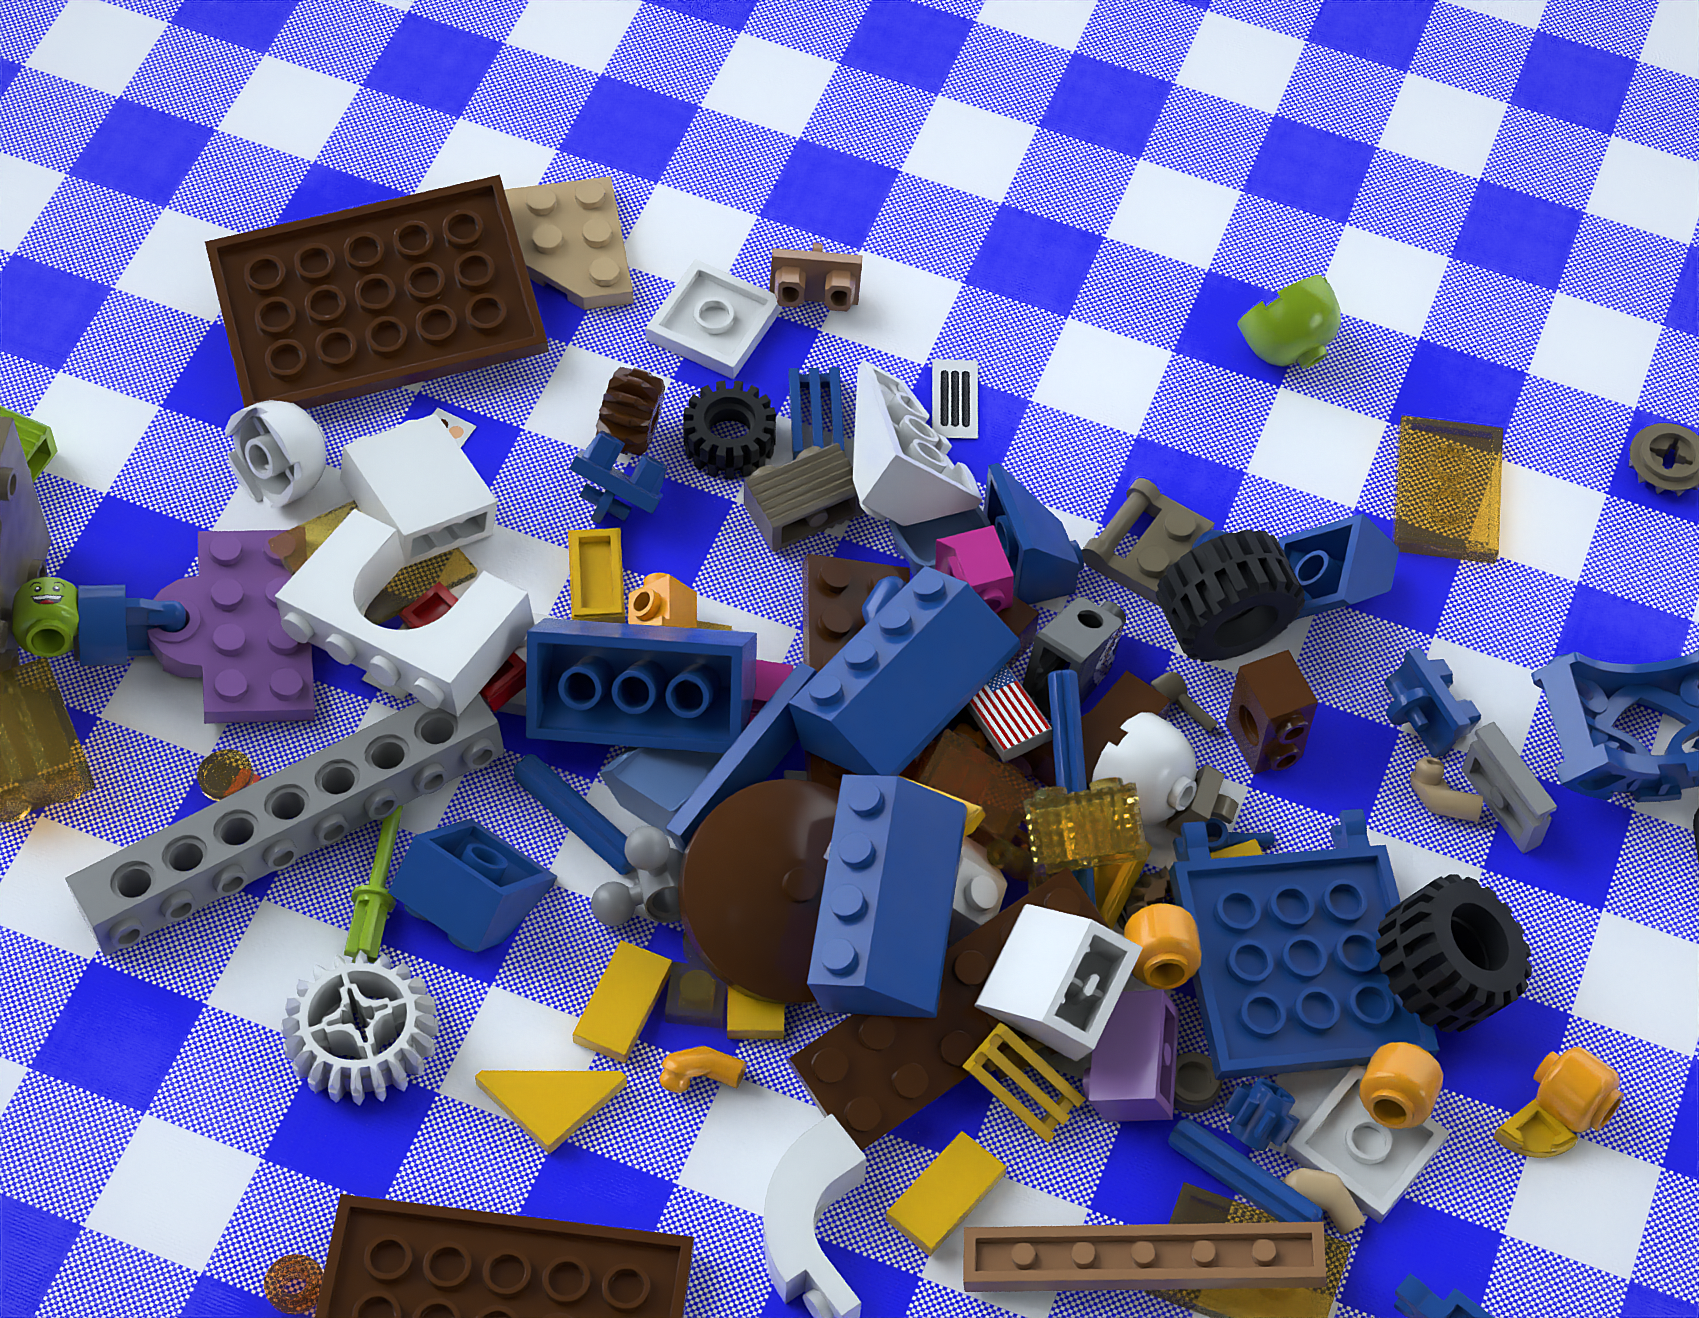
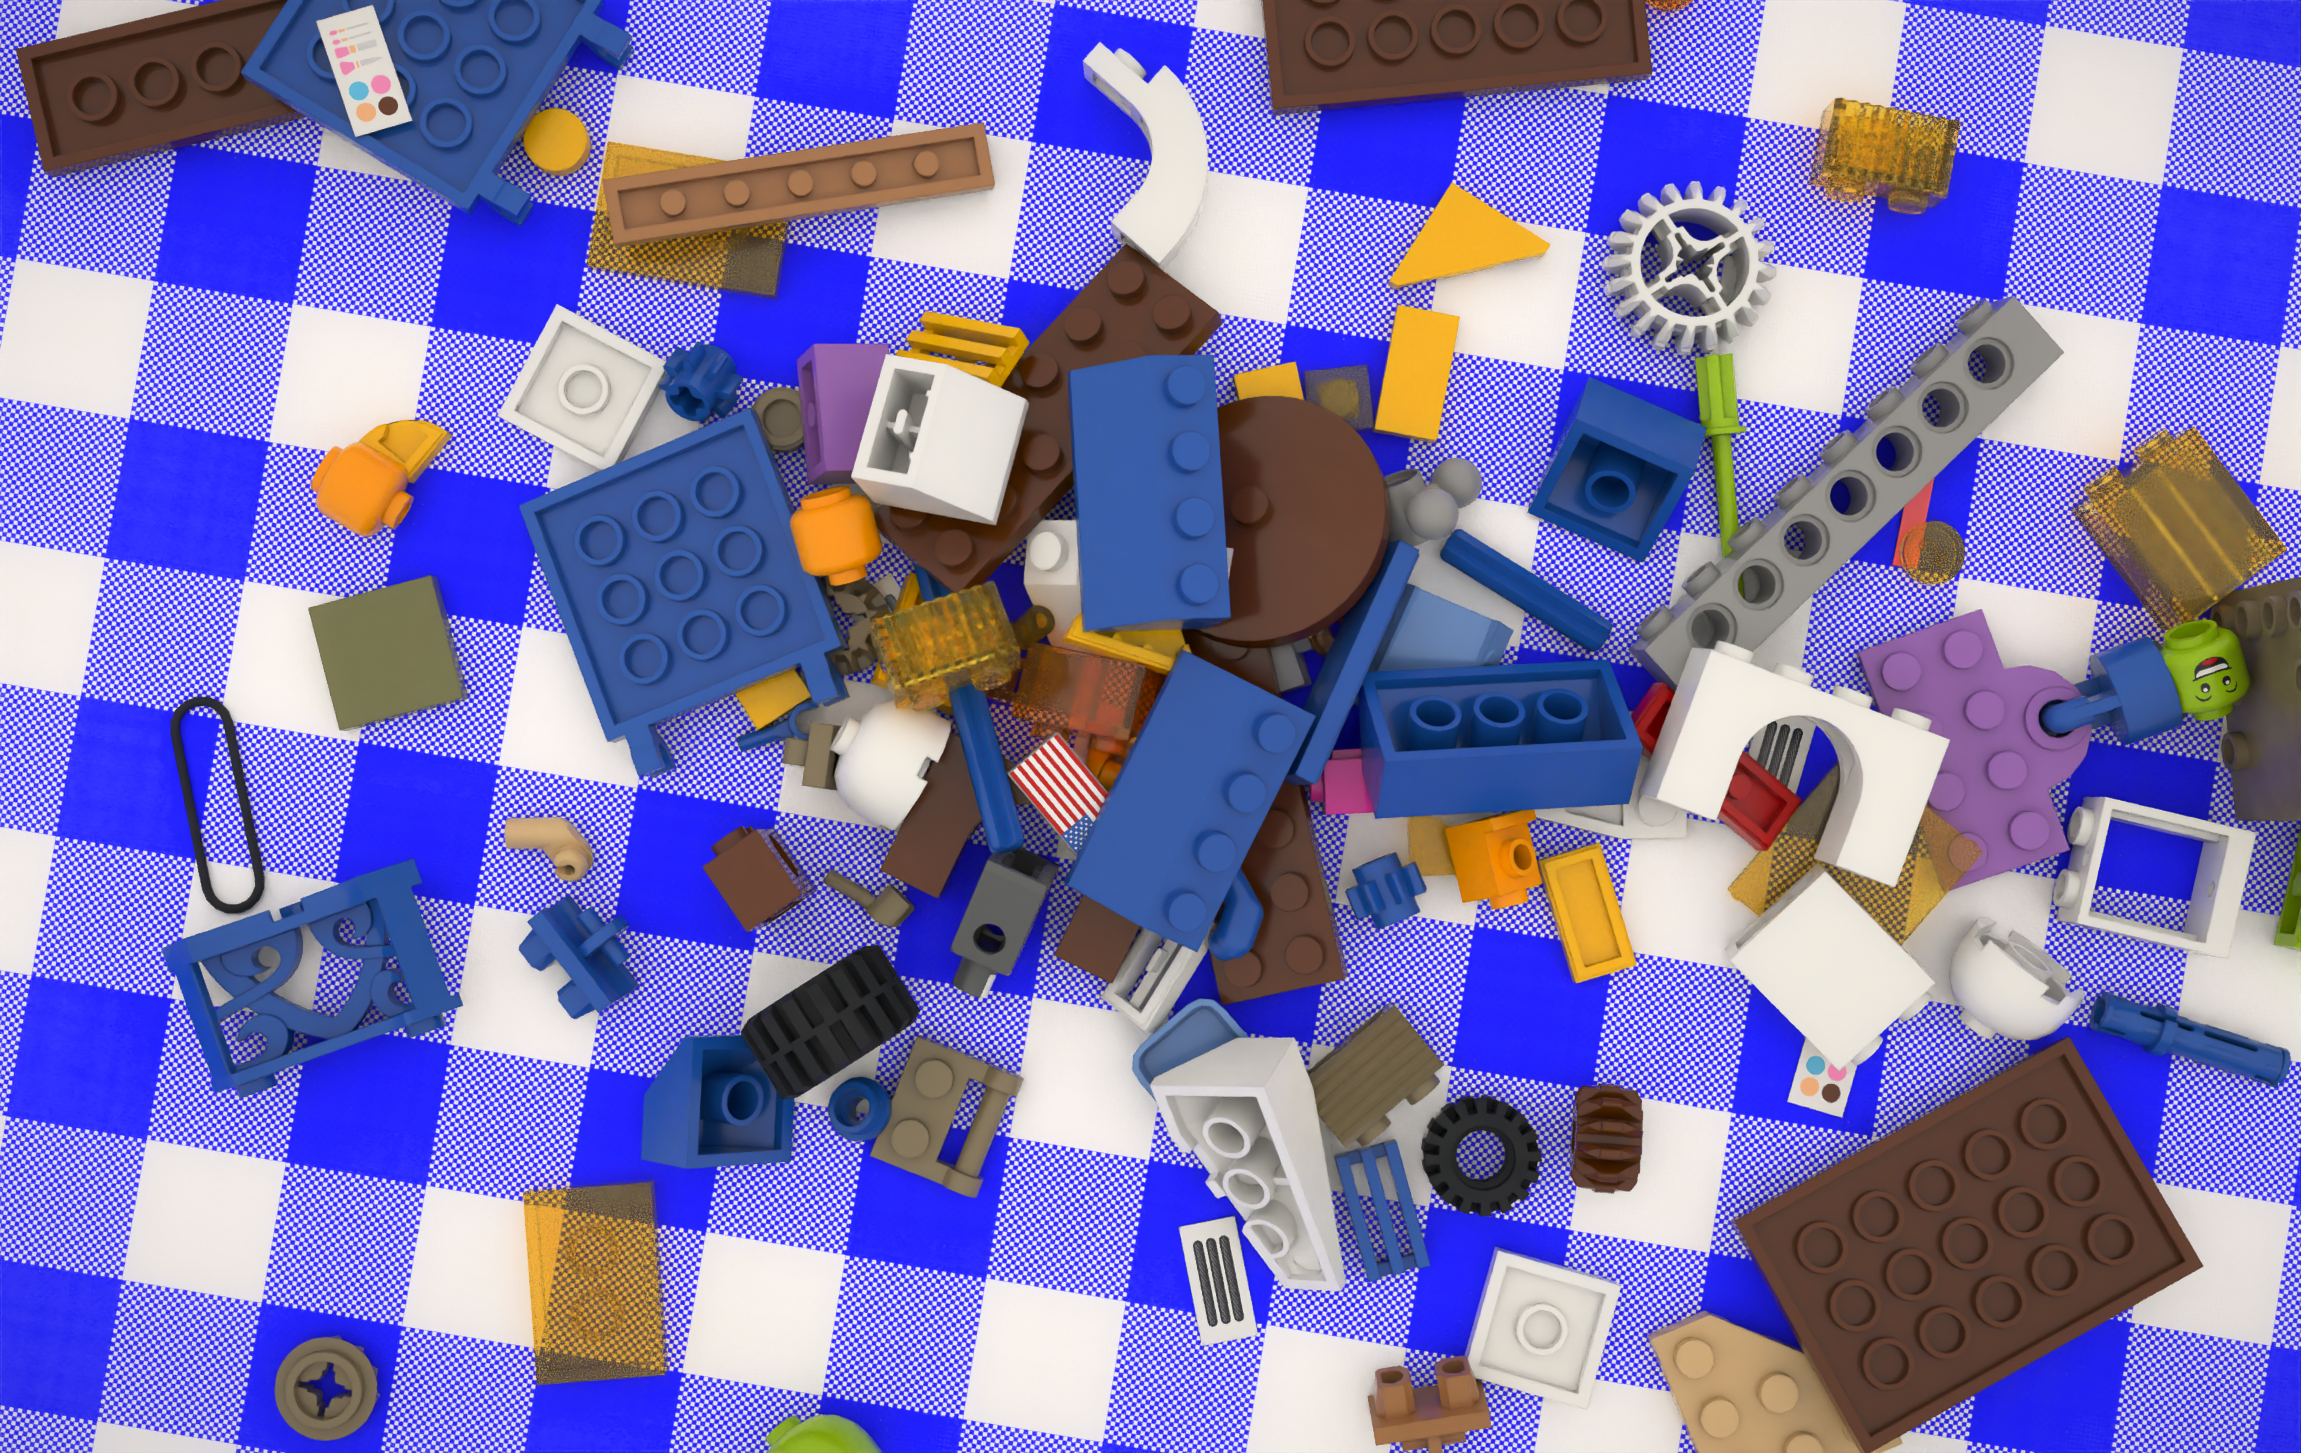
camera: 170 degrees right, 30 degrees up
(98, 475) = (2215, 891): none -> white window
(156, 1083) = (1884, 155): none -> clear yellow brick
(196, 419) = (2164, 1031): none -> blue pin
(597, 466) = (1598, 1034): blue hips -> none
(697, 1062) = (1316, 318): light orange arm -> none
(757, 611) = (1386, 890): none -> blue gear
(945, 1193) = (1022, 231): yellow tile -> none
(980, 562) = (1134, 973): dark pink window -> none
(1032, 539) = (1082, 1060): blue slope -> none
(1242, 1174) = (708, 309): blue axle -> none
(1329, 1194) = (624, 313): tan arm -> none
(1401, 1085) = (552, 437): light orange head -> none
(1453, 953) = (474, 612): black tyre -> none
(1508, 787) = (475, 851): light grey plate -> none
(1576, 969) = (388, 653): none -> olive tile

